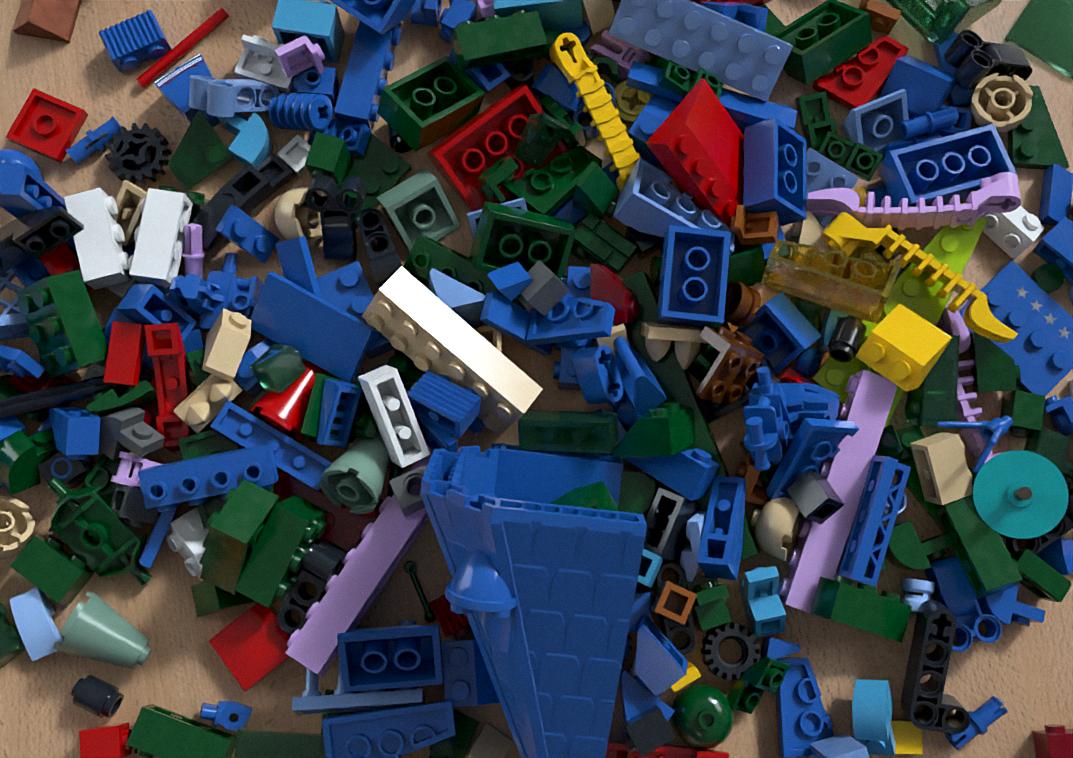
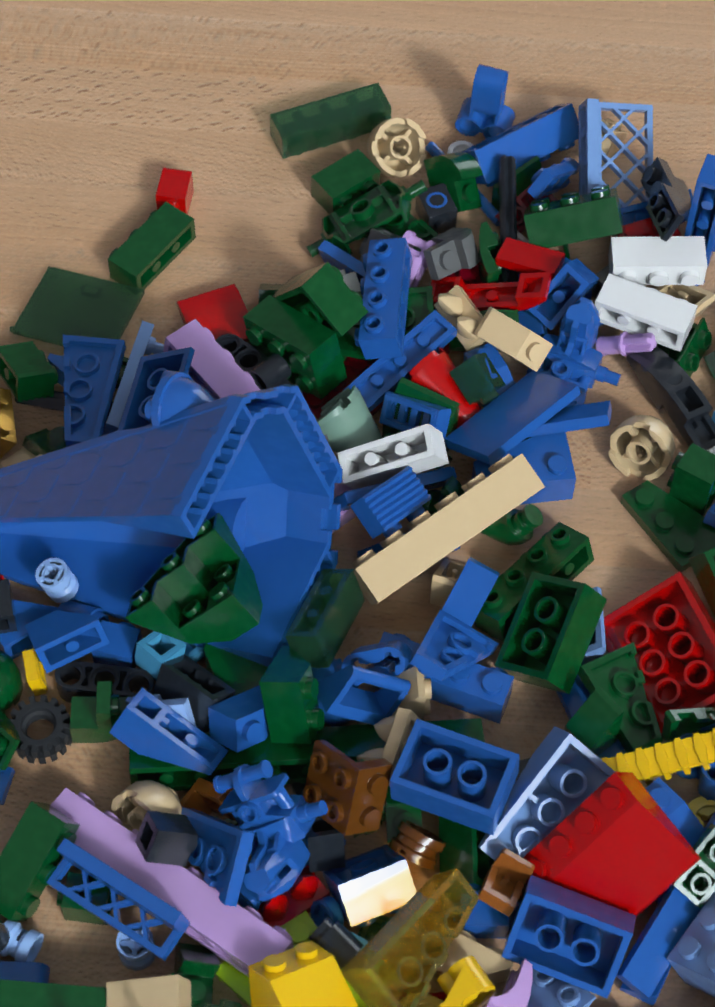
camera: 110 degrees right, 20 degrees down
(34, 623) = (299, 161): light blue slope -> none
(75, 431) = (467, 212): blue slope -> none
(97, 696) = (217, 194): black brick -> none
(102, 635) = (271, 204): sand green cone -> none
(221, 712) = (163, 280): blue piece -> none
(247, 234) = (635, 390): blue plate -> none
(337, 214) = (632, 469): black piece -> none
(382, 263) = (583, 507): black piece -> none
(419, 209) = (626, 558): sand green slope -> none
(458, 297) = (505, 544): medium blue slope -> none
(497, 174) = (639, 632): dark green bracket -> none
(510, 280) = (507, 598): blue slope -> none
(539, 138) = (677, 687): clear green slope -> none
(544, 290) = (492, 632): dark grey brick -> none
(602, 244) = (530, 726): dark green brick -> none
(610, 289) = (464, 704): dark red slope -> none
(673, 602) = (110, 660): dark orange brick -> none
(762, 601) = (77, 771): dark azure brick -> none
(777, 648) = (24, 775): blue slope -> none
(909, 552) = (76, 946): dark green brick -> none

